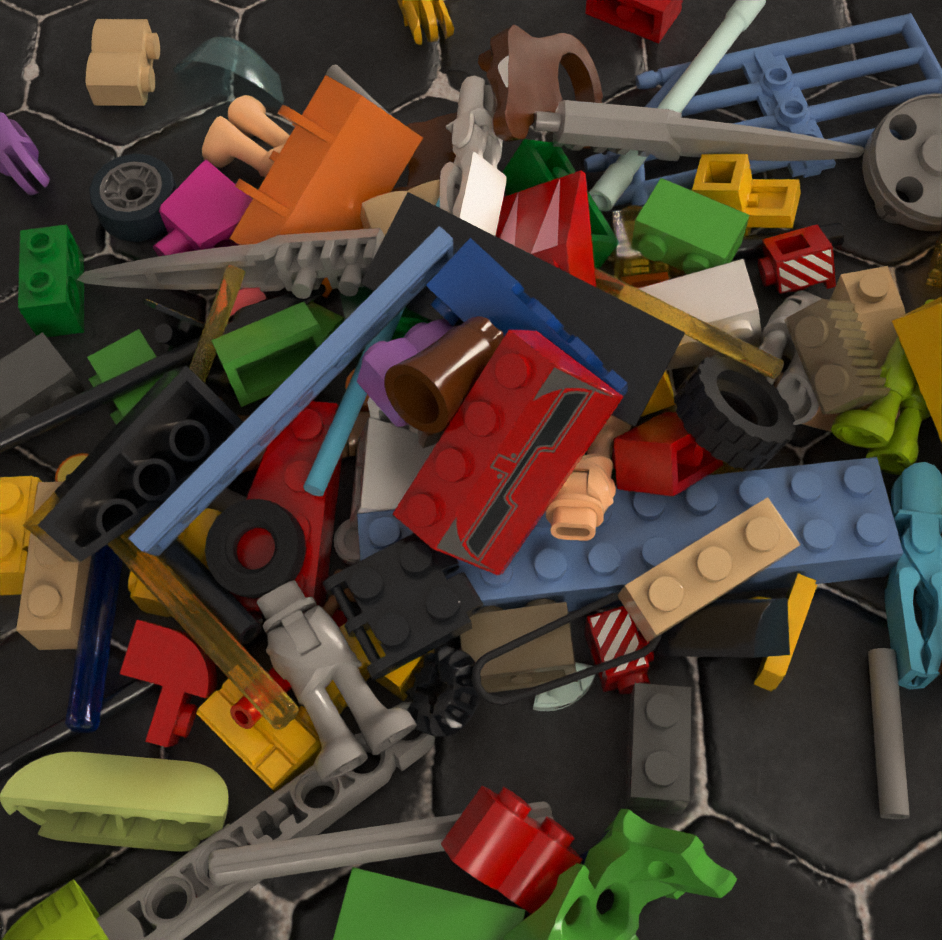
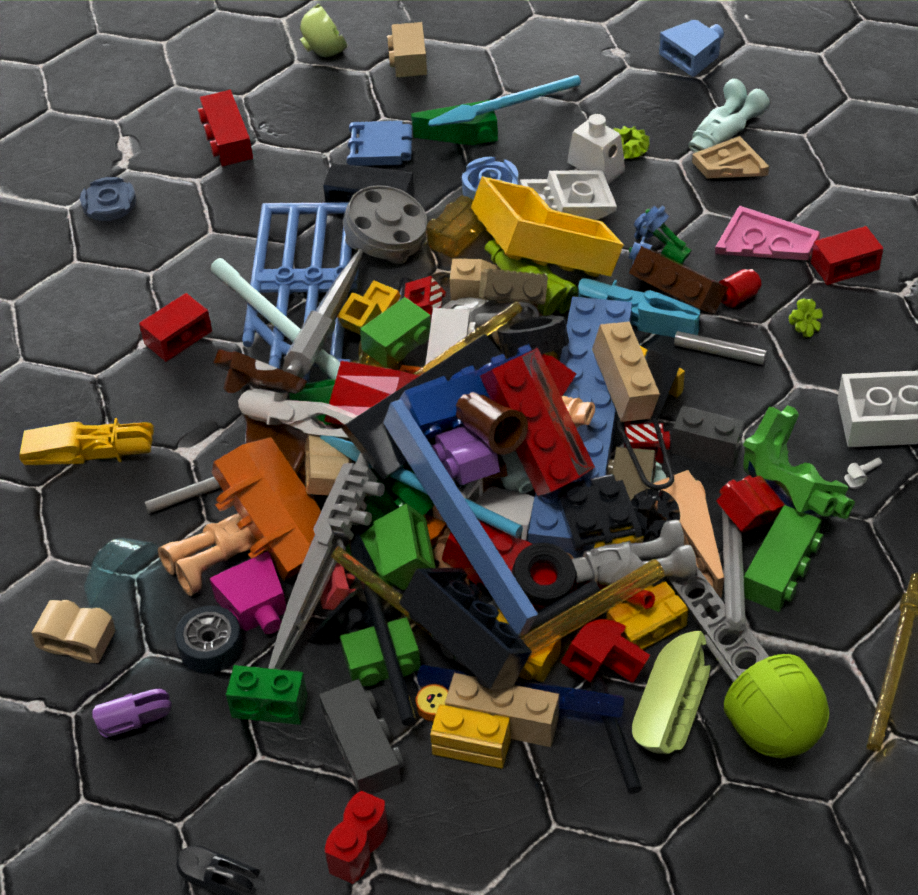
camera: 75 degrees left, 15 degrees down
(485, 752) = (696, 525): none -> light nougat slope

